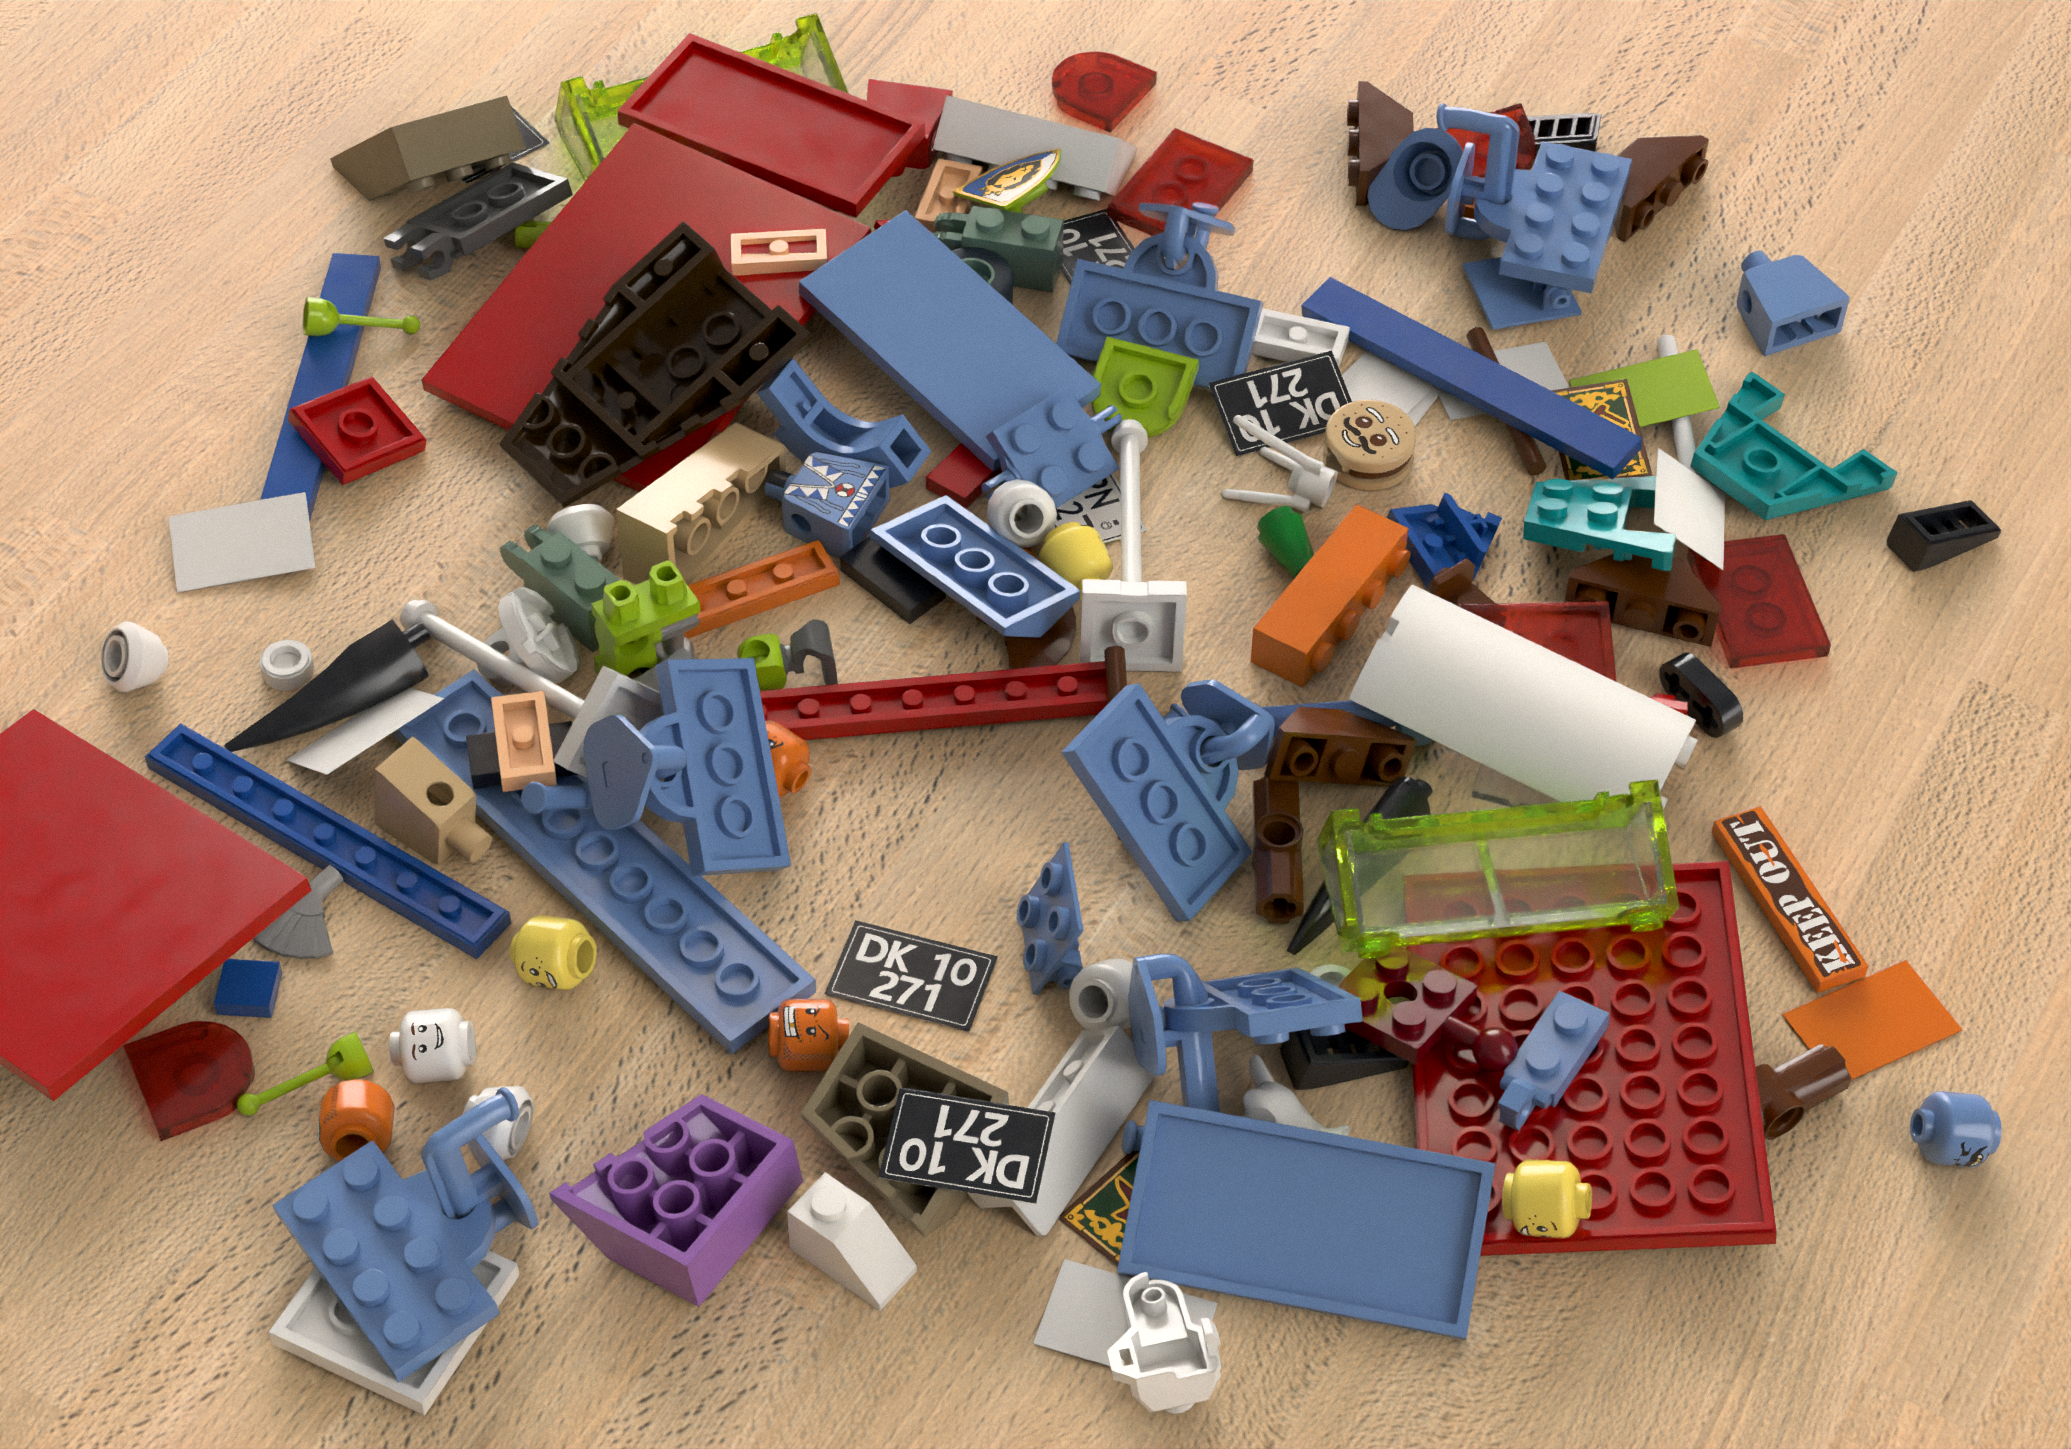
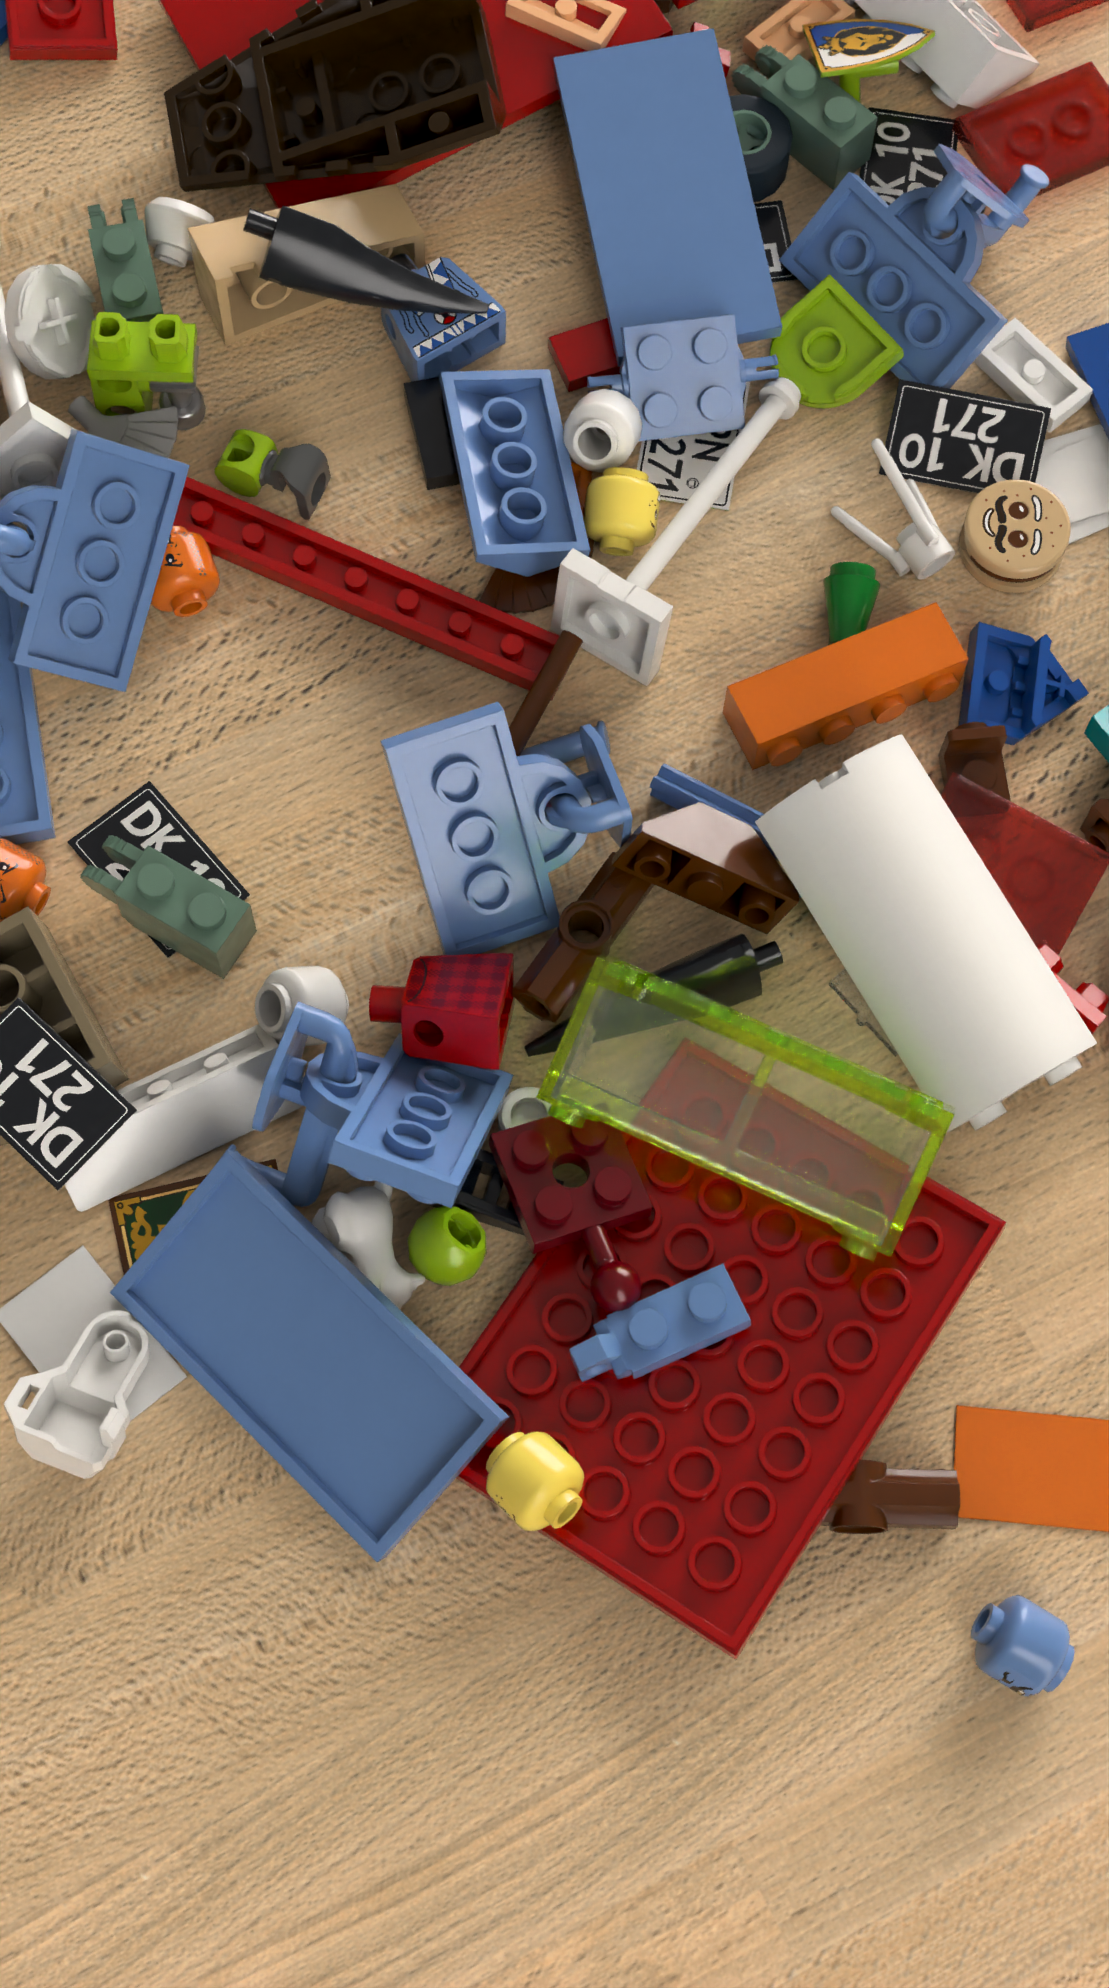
camera: 30 degrees right, 20 degrees up
(750, 481) = (335, 265): none -> black piece
(763, 586) = (297, 371): orange tile -> none
(815, 425) = (485, 244): medium blue arch -> none
(954, 979) = (175, 905): none -> sand green hinge
(1052, 924) = (316, 884): medium blue hinge -> none
(1230, 933) = (452, 1008): none -> red torso
(1346, 1097) = (447, 1245): none -> lime piece
(1789, 899) = (1058, 1287): tile -> none

